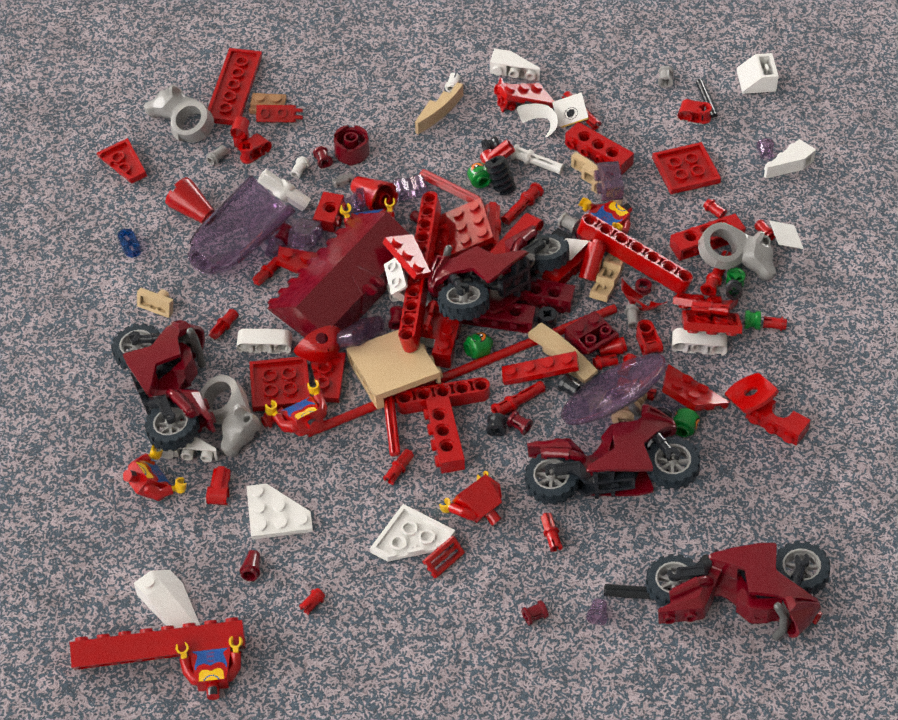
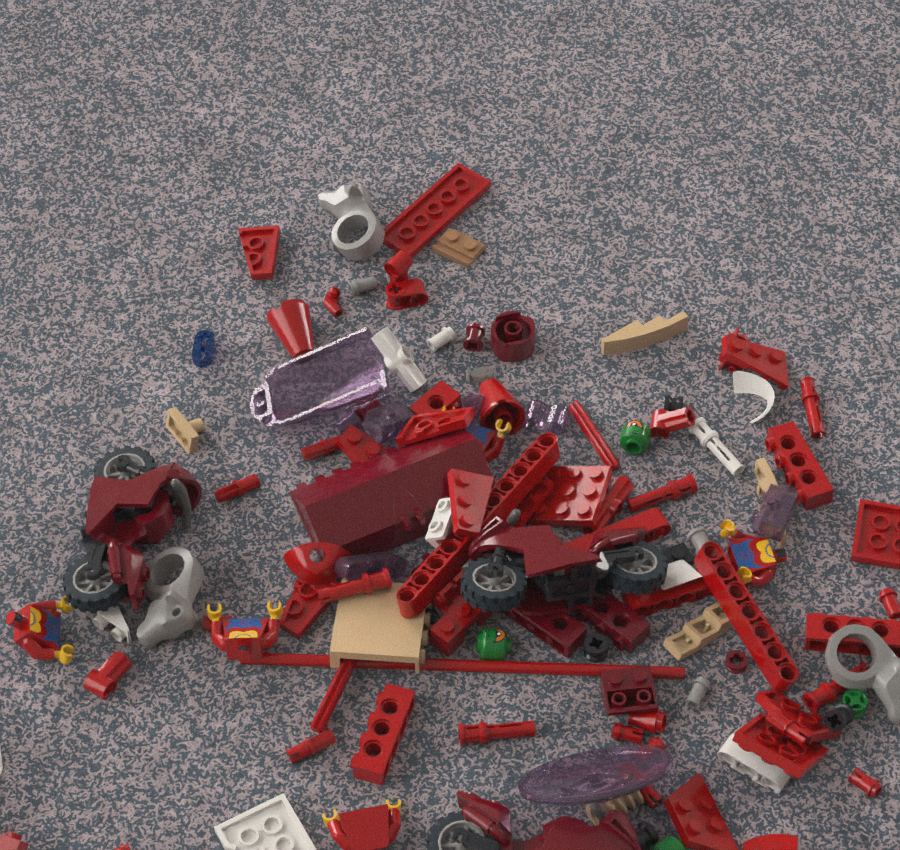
camera: 30 degrees right, 0 degrees up
(201, 175) = (331, 301): none -> red arm
(251, 566) = (80, 783): dark red cone -> none
(264, 341) = (266, 527): white beam -> none
(275, 514) = (146, 735): white plate -> none
(278, 113) = (459, 263): red hinge -> none
(278, 380) = (247, 584): red plate -> none
(343, 219) = (434, 424): none -> red wing
(369, 341) = (366, 584): none -> red pin
(452, 81) = (684, 306): white pin -> none
(459, 393) = (426, 685): red beam -> none
(496, 424) = (449, 750): black wheel -> none
(500, 175) = (655, 448): black piece -> none
(512, 65) = (765, 315): white slope -> none
(519, 422) = (477, 760): dark red bush -> none
(540, 368) = (543, 706): red plate -> none
(554, 344) = (583, 699): tan slope -> none
(568, 385) = (564, 741): black piece -> none
(570, 110) = (797, 402): white sticker -> none
(592, 260) = (691, 601): red brick -> none
(633, 297) = (714, 667): red piece -> none
(648, 338) = (695, 732): red piece -> none
(752, 319) = (838, 766): green wheel -> none

